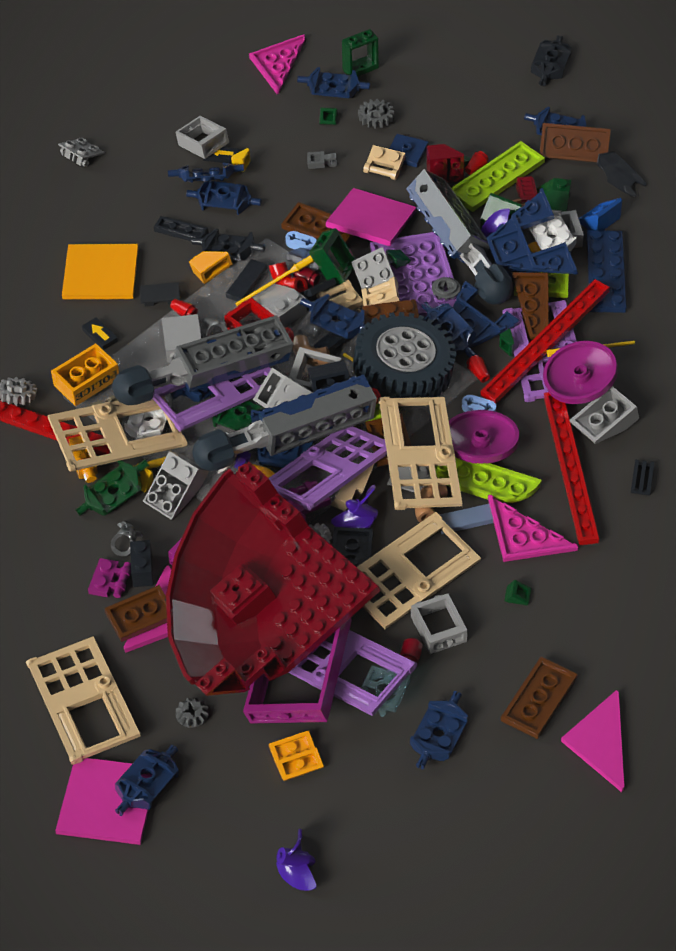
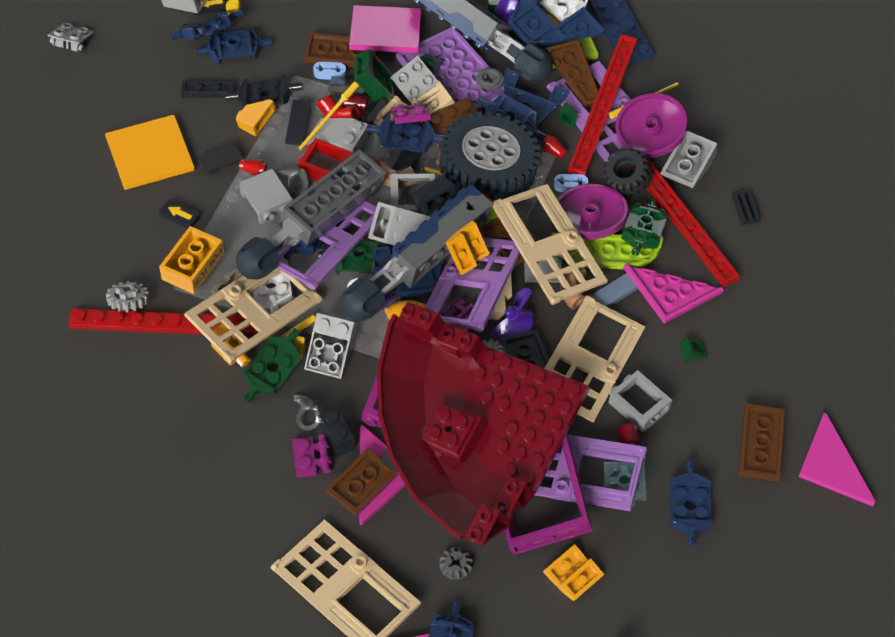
camera: 25 degrees left, 5 degrees up
(334, 432) = (467, 247): none -> light orange slope
(351, 298) = (410, 113): none -> magenta plate
(523, 473) = (643, 234): none -> dark green plate
(540, 420) = (622, 161): none -> black tyre

